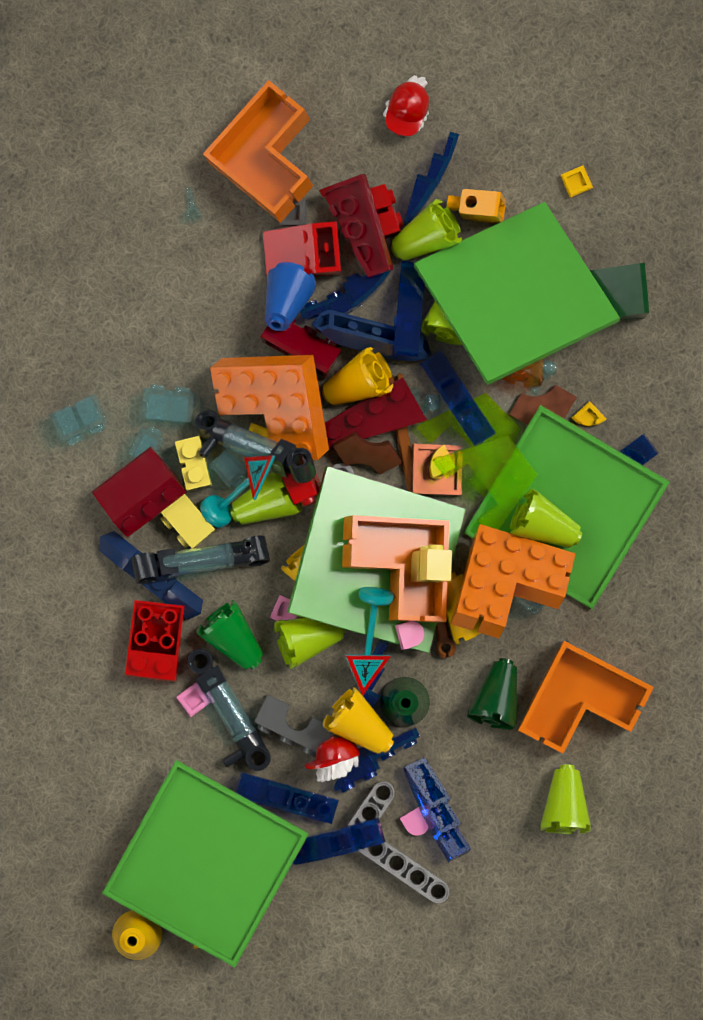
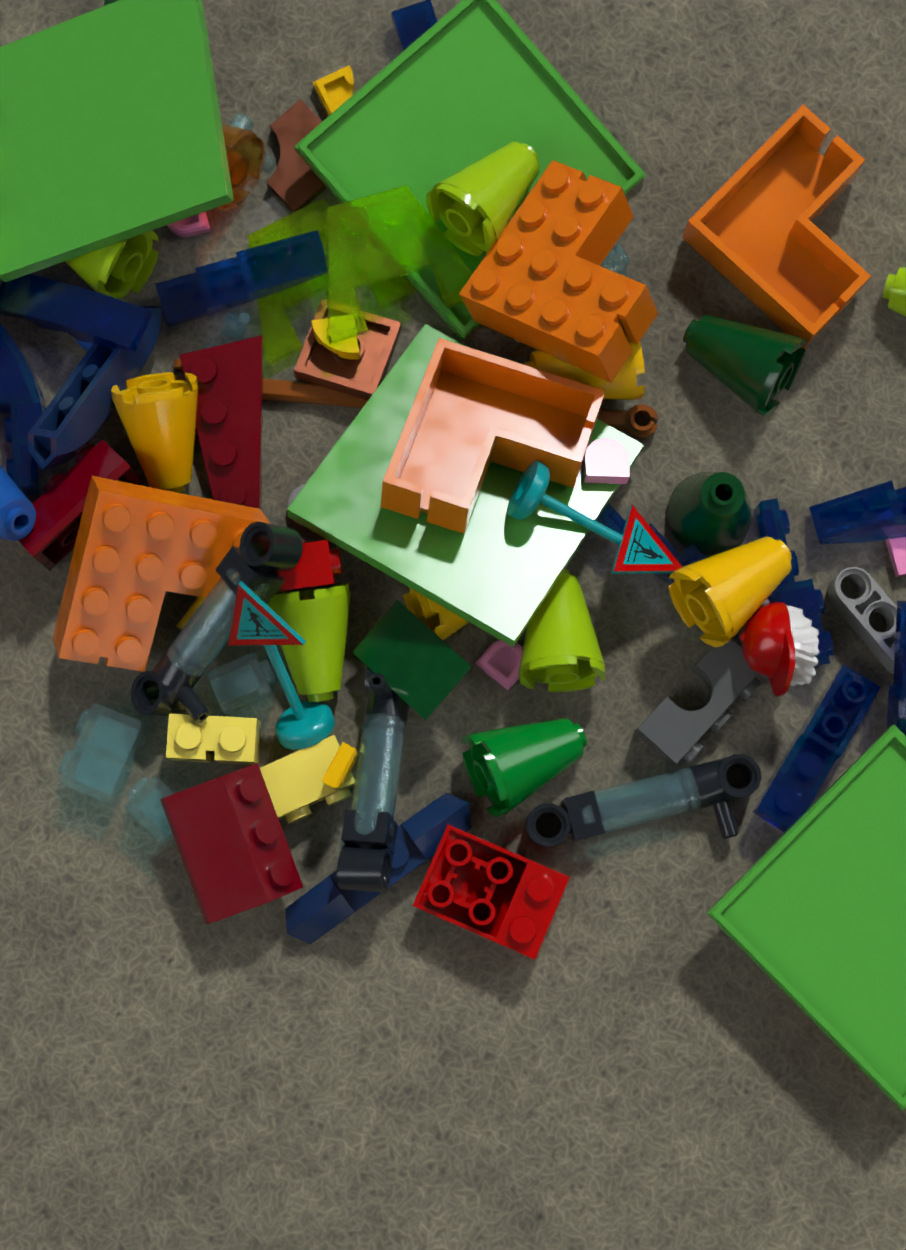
camera: 80 degrees left, 5 degrees down
(80, 419) = (79, 910): clear light blue piece -> none
(193, 699) = (607, 857): bright pink tile -> none
(196, 538) = (340, 766): none -> yellow tile
(267, 559) = (412, 659): none -> dark green sticker
(356, 450) = (295, 435): copper tile -> none
(431, 564) = (503, 384): light yellow piece -> none

